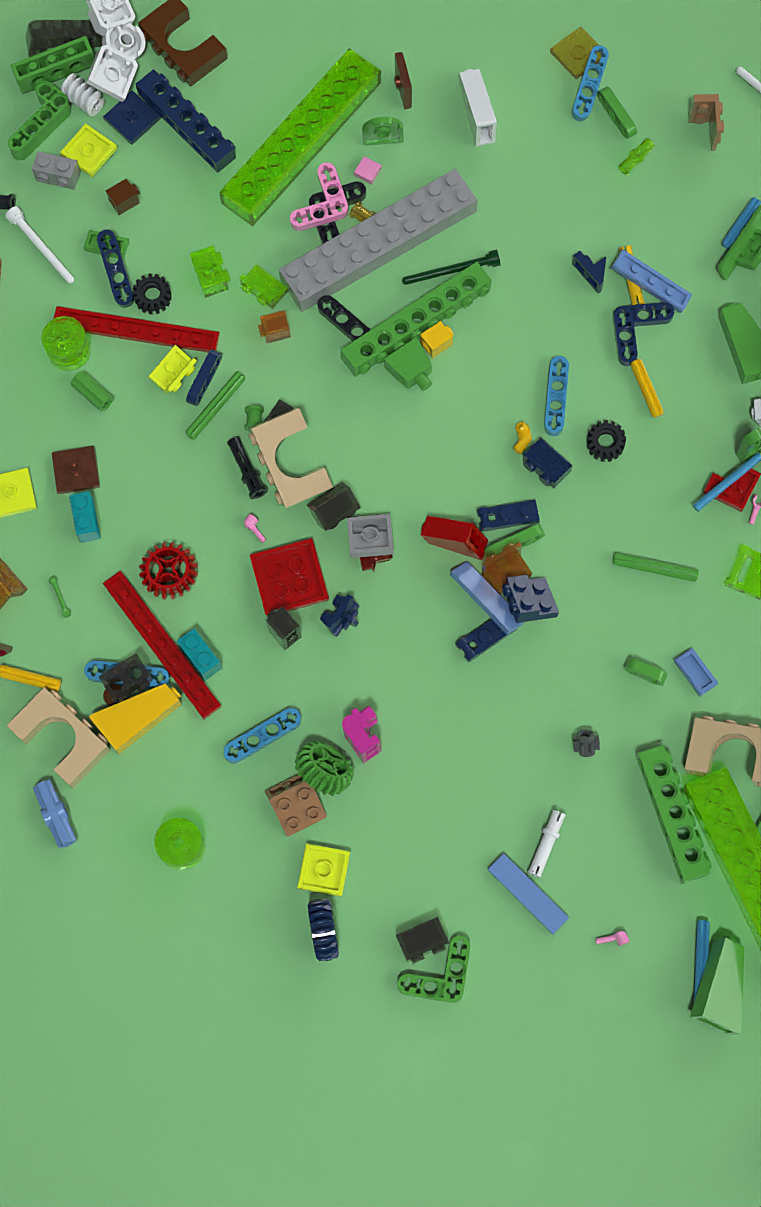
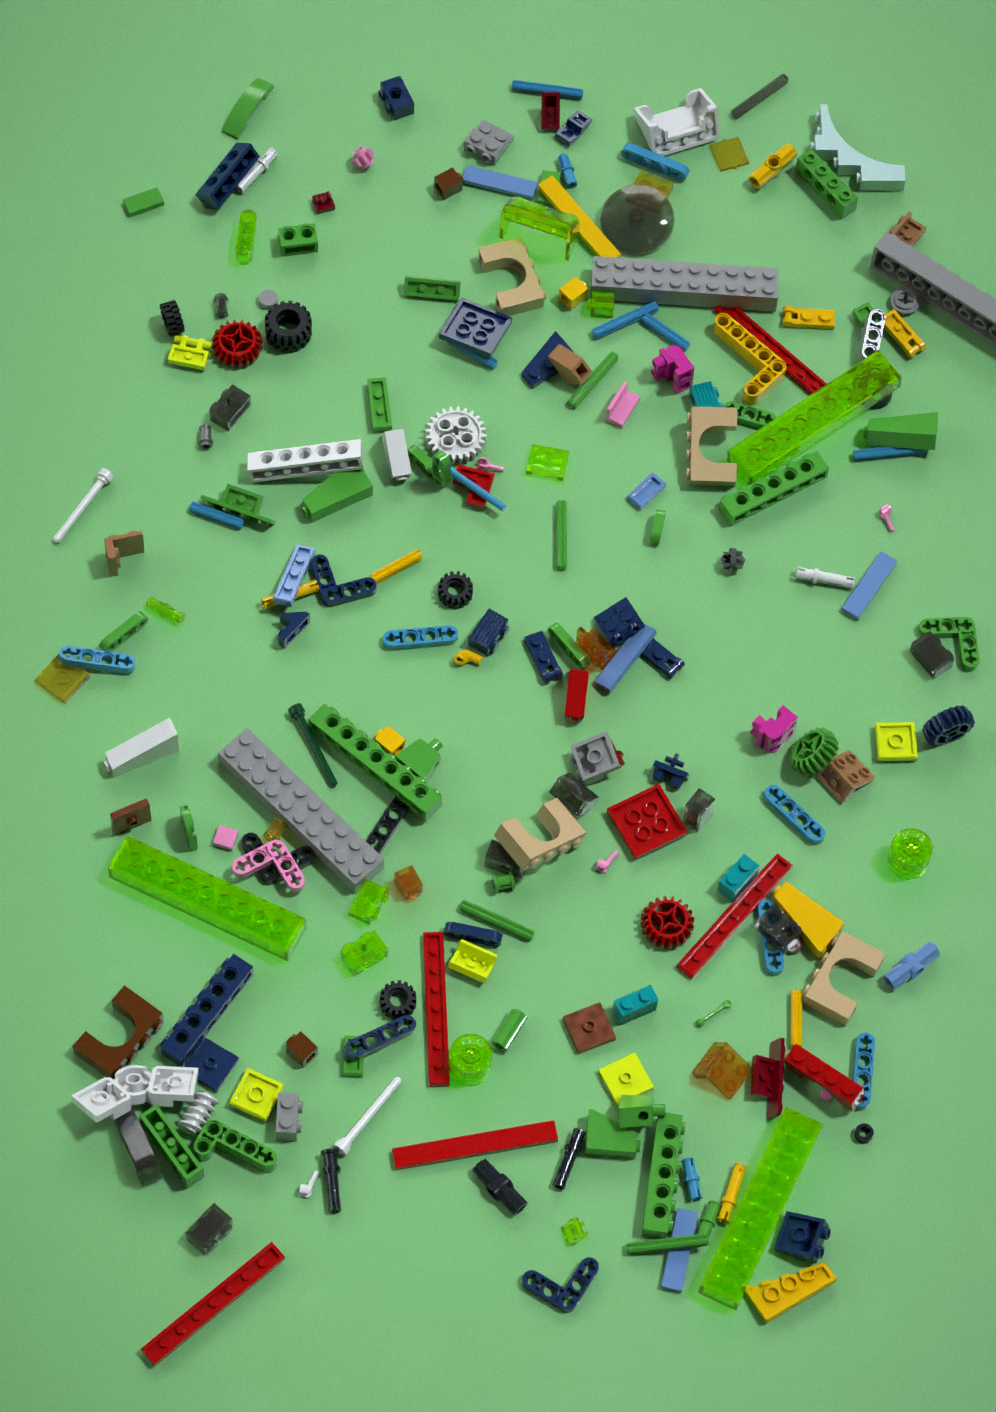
camera: 110 degrees left, 10 degrees down
(249, 475) = (560, 872): black pin -> none

